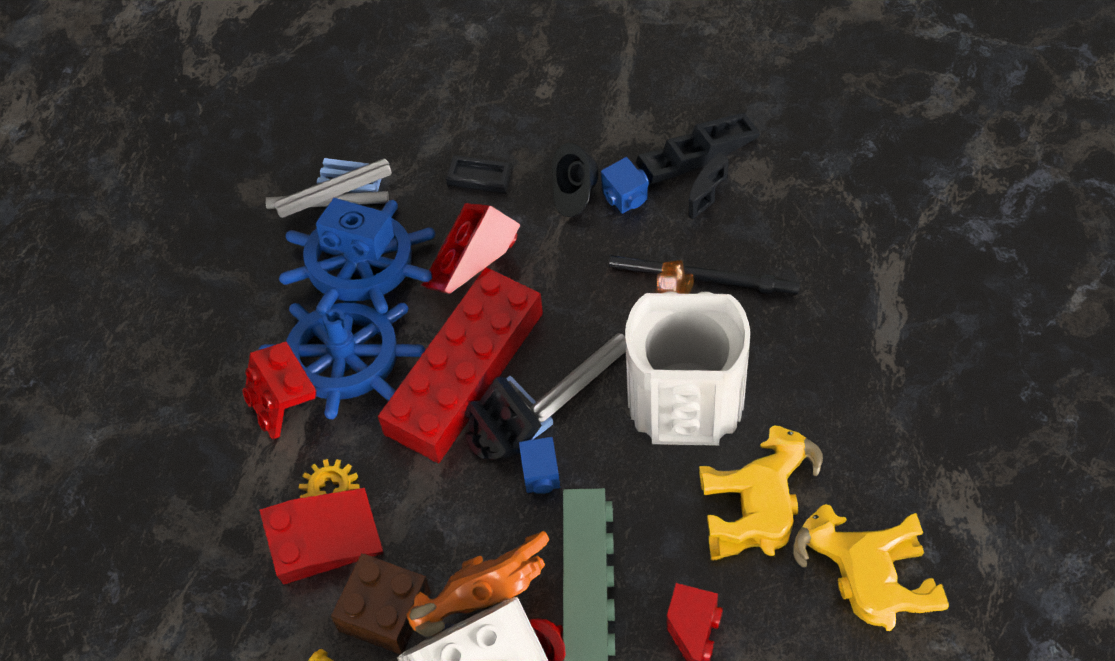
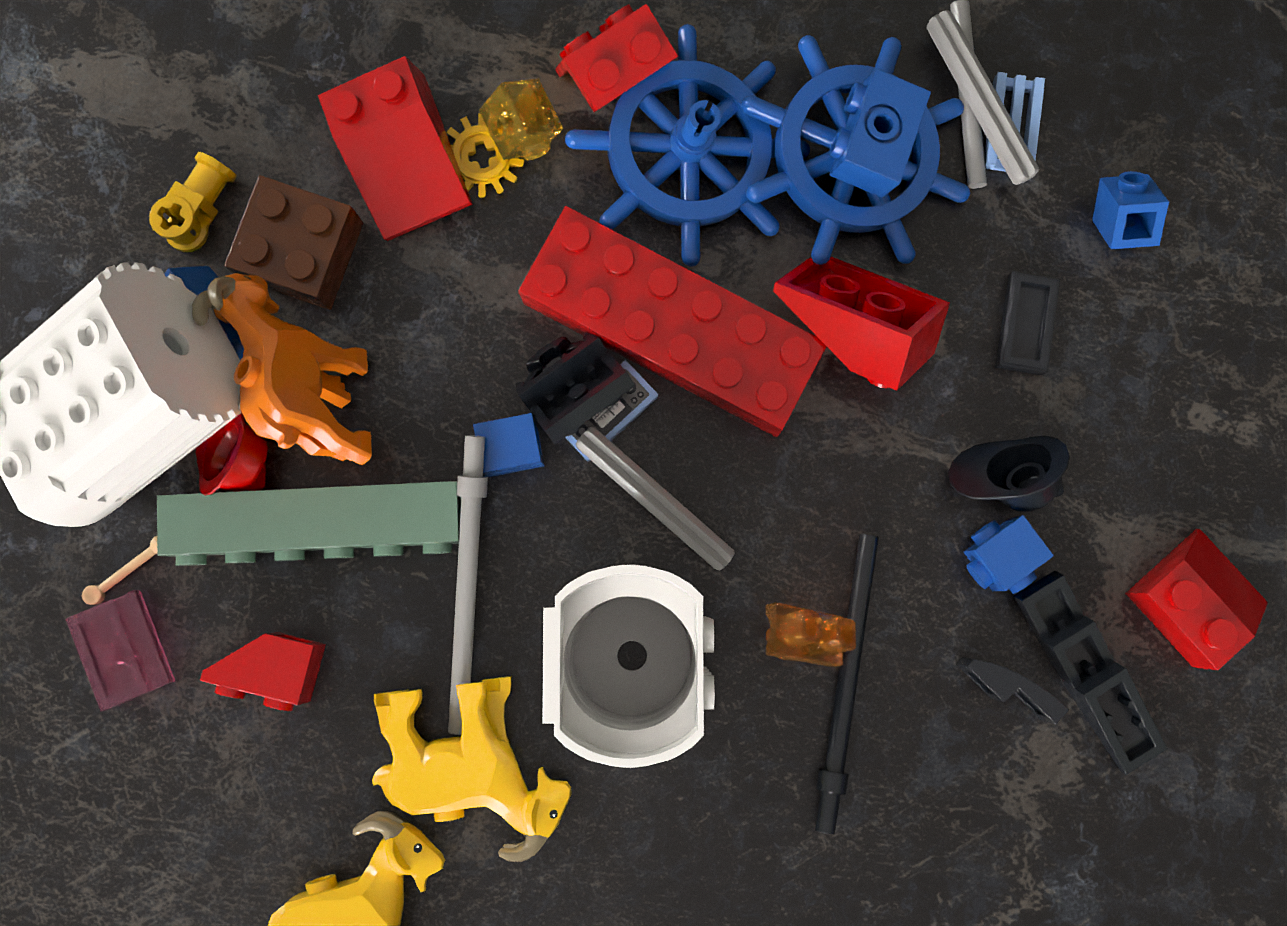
camera: 85 degrees right, 25 degrees up
(311, 451) = (521, 119): none -> clear yellow brick
(416, 114) = (1130, 211): none -> blue brick
(569, 478) = (471, 489): none -> light grey bar
(658, 94) = (1200, 602): none -> red slope

